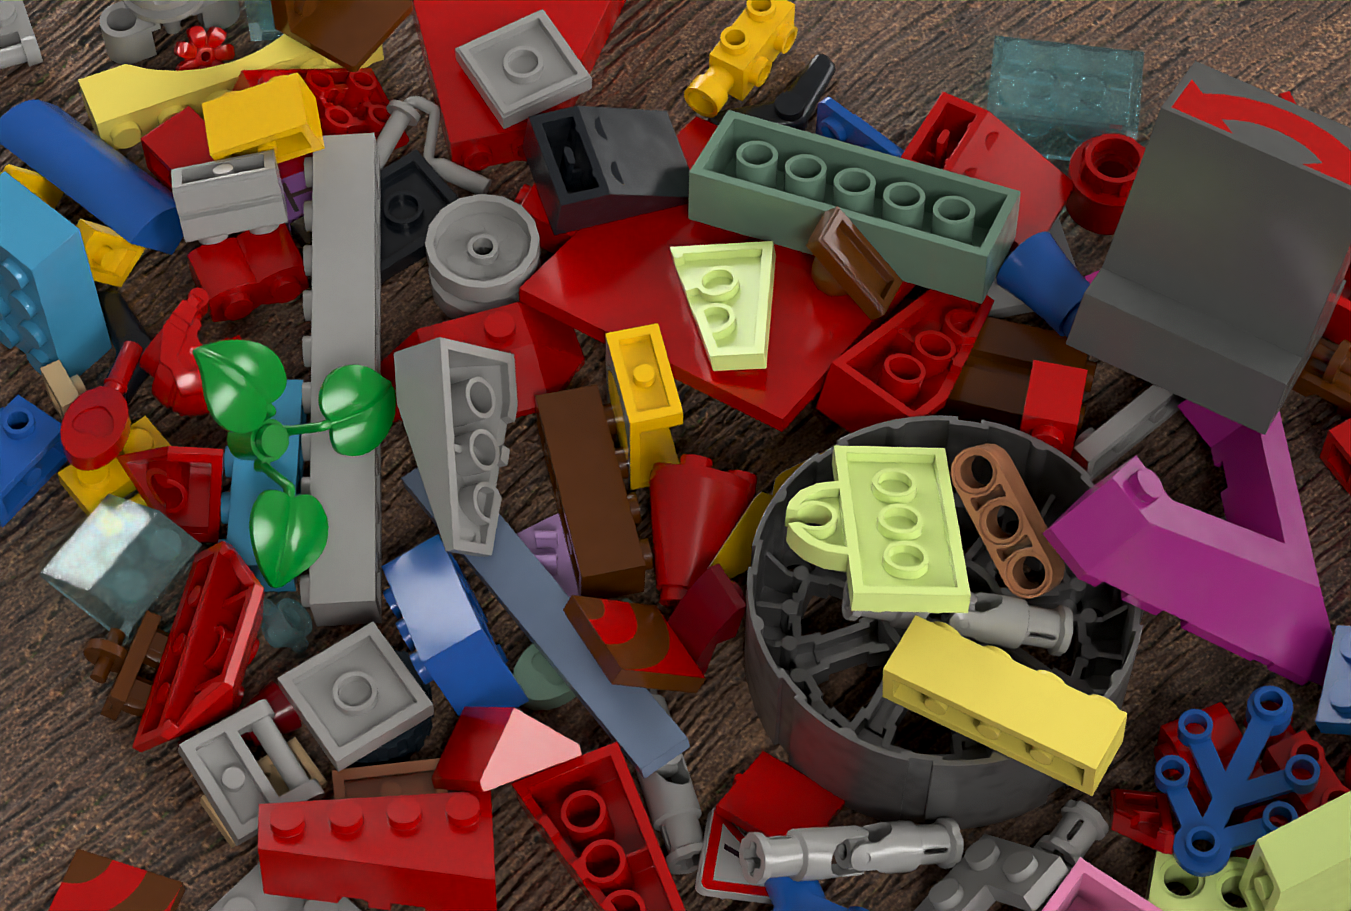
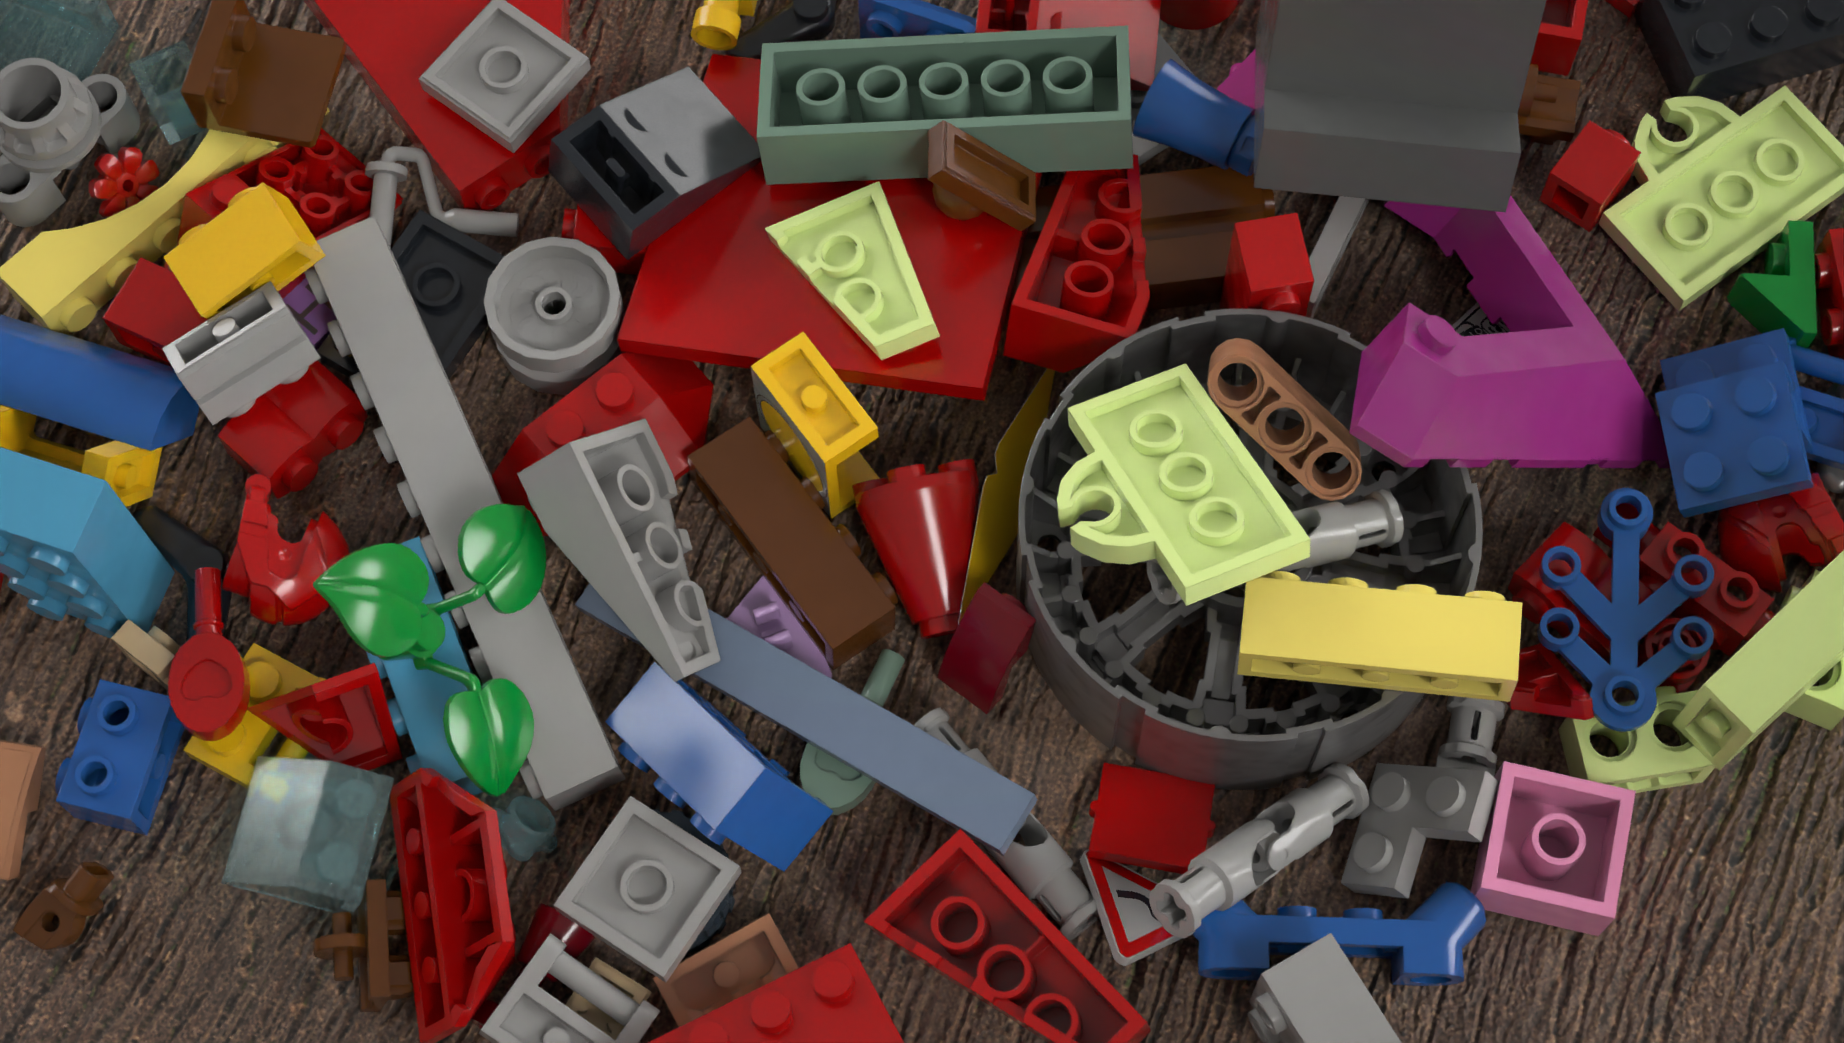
camera: 20 degrees left, 10 degrees up
(498, 747) = (833, 895): slope -> none
(633, 644) = (925, 706): reddish brown tile -> none

